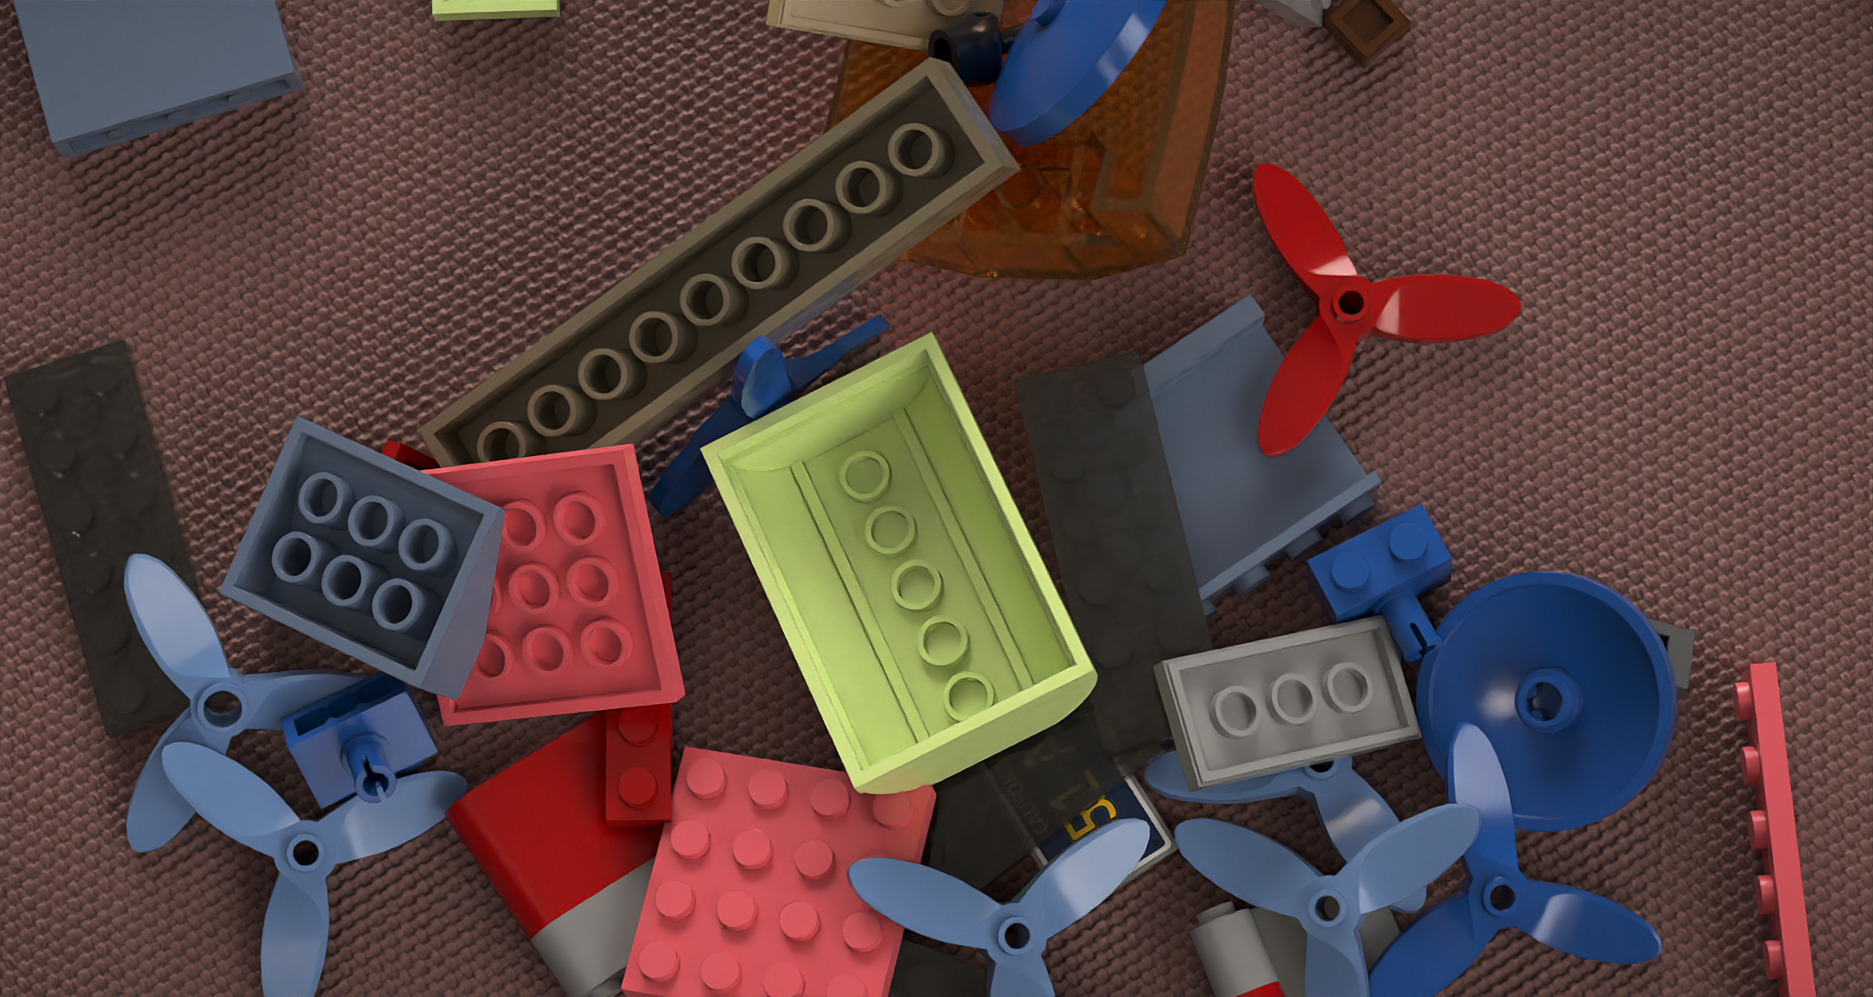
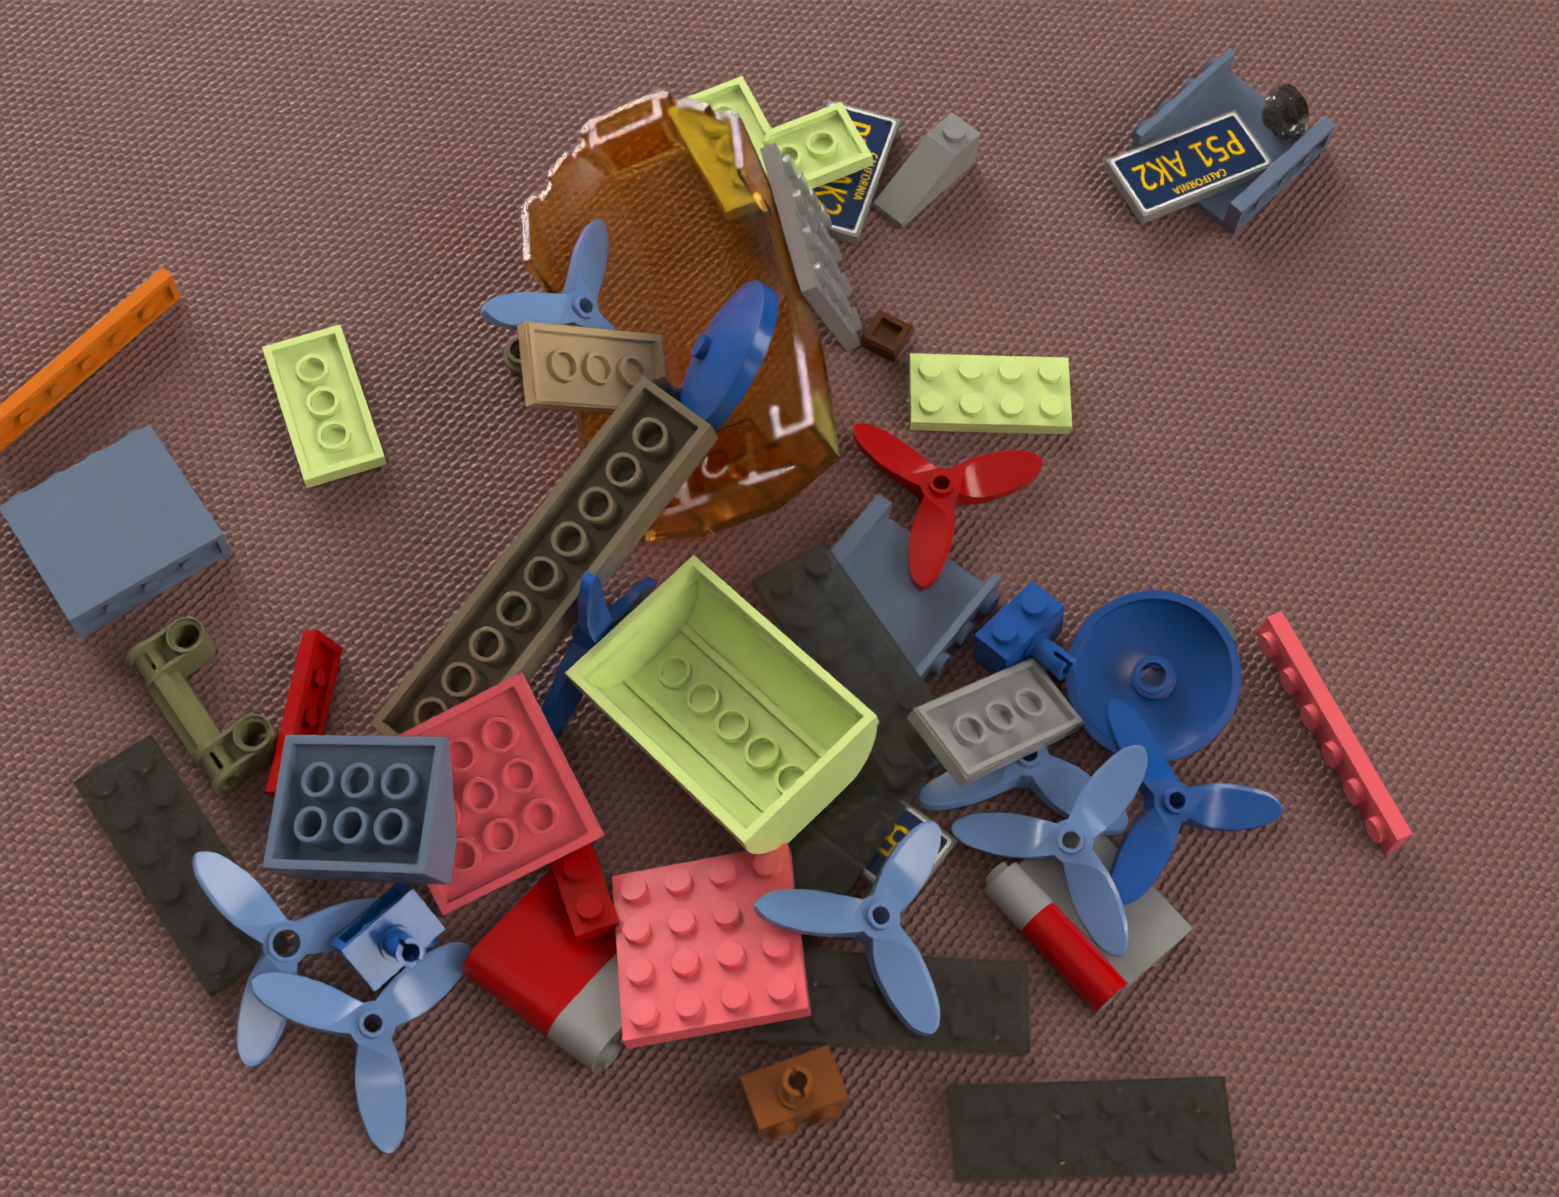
camera: 30 degrees left, 15 degrees down
(212, 403) = (187, 713): none -> olive piece
(347, 355) = (308, 694): none -> red plate
(1488, 168) = (989, 394): none -> yellowish green plate

